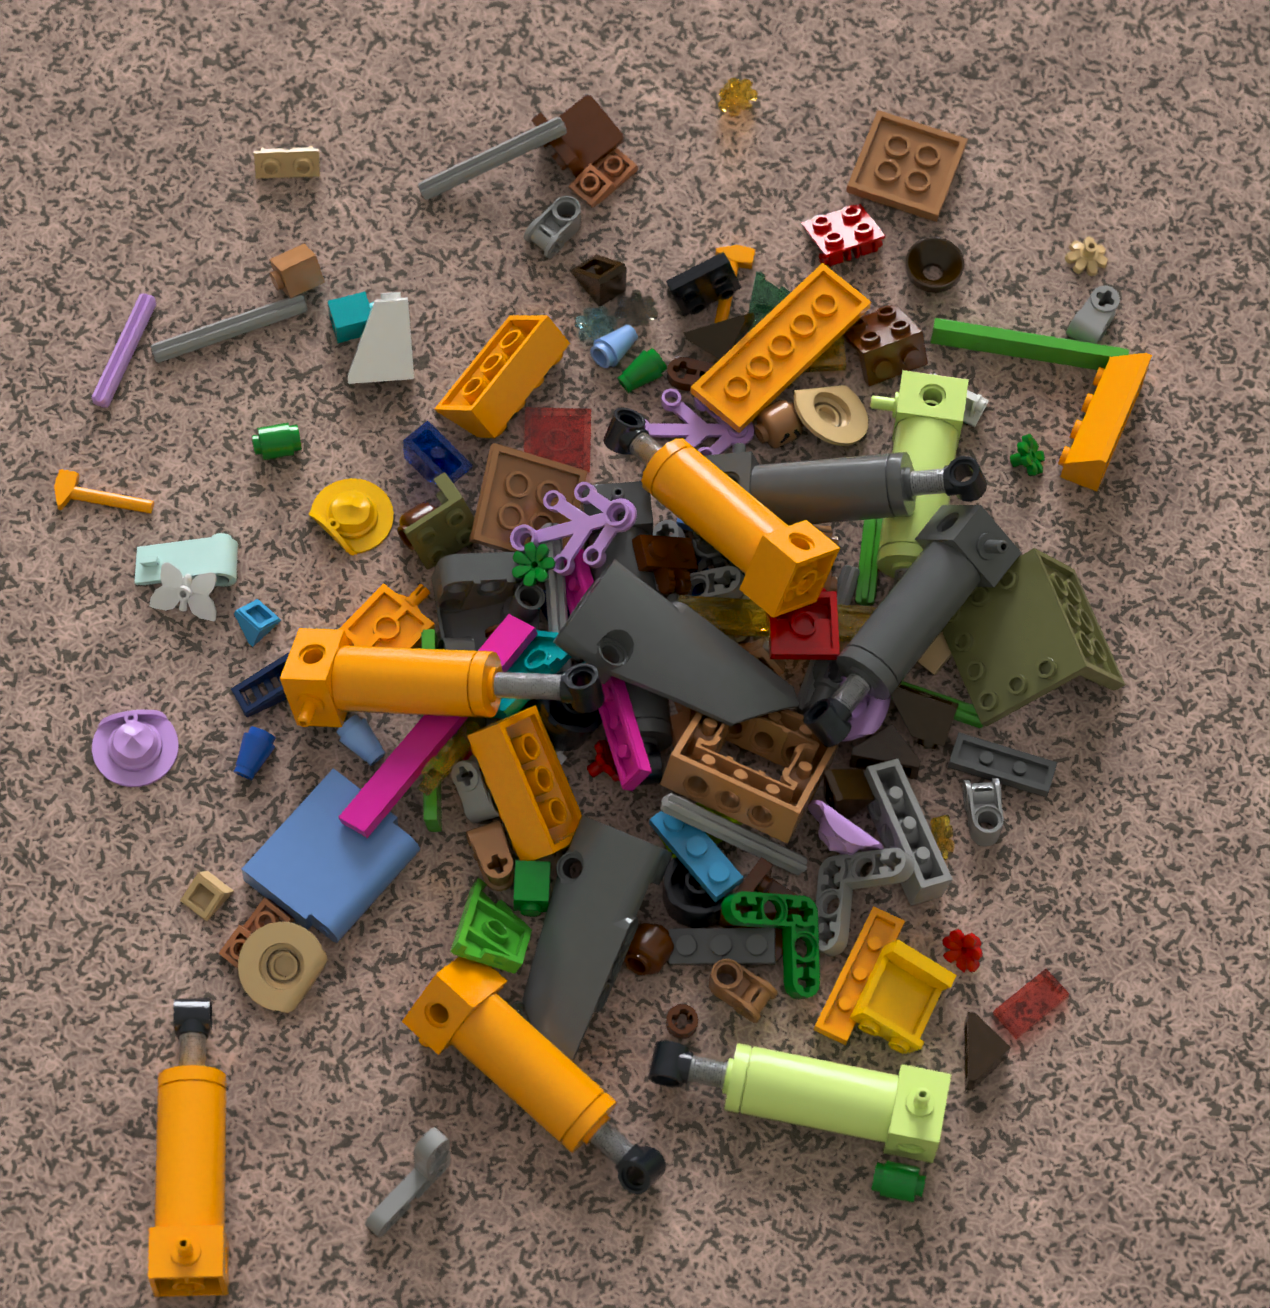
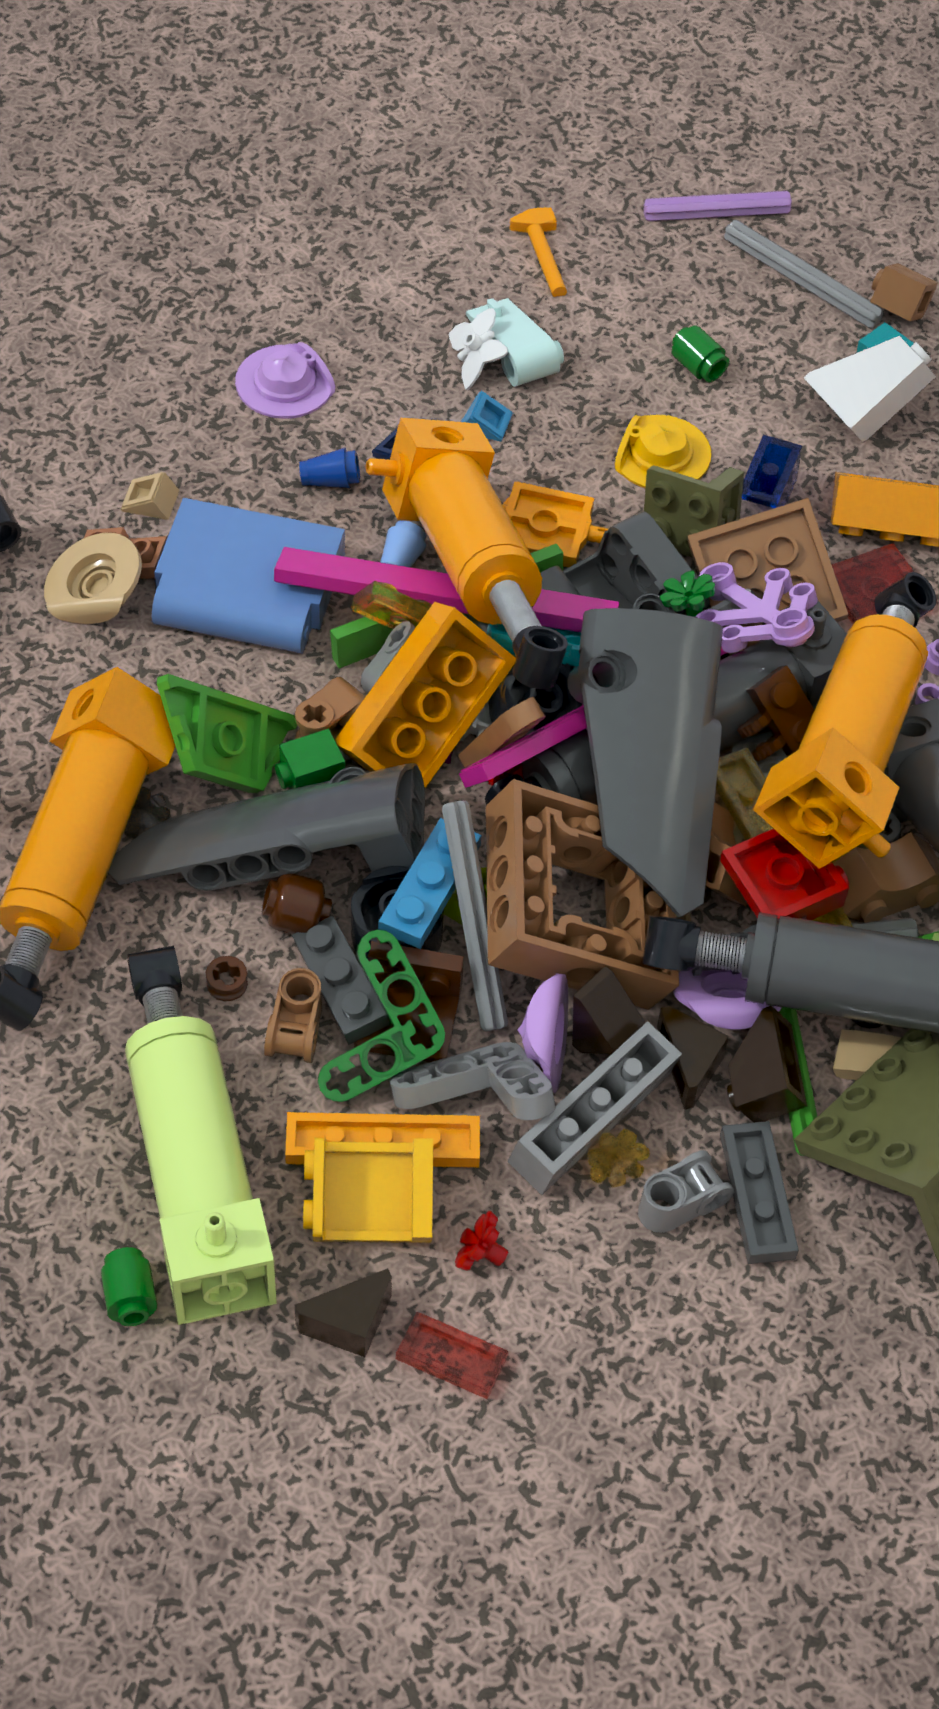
camera: 65 degrees right, 10 degrees down
(601, 747) = (503, 731): none -> medium nougat beam

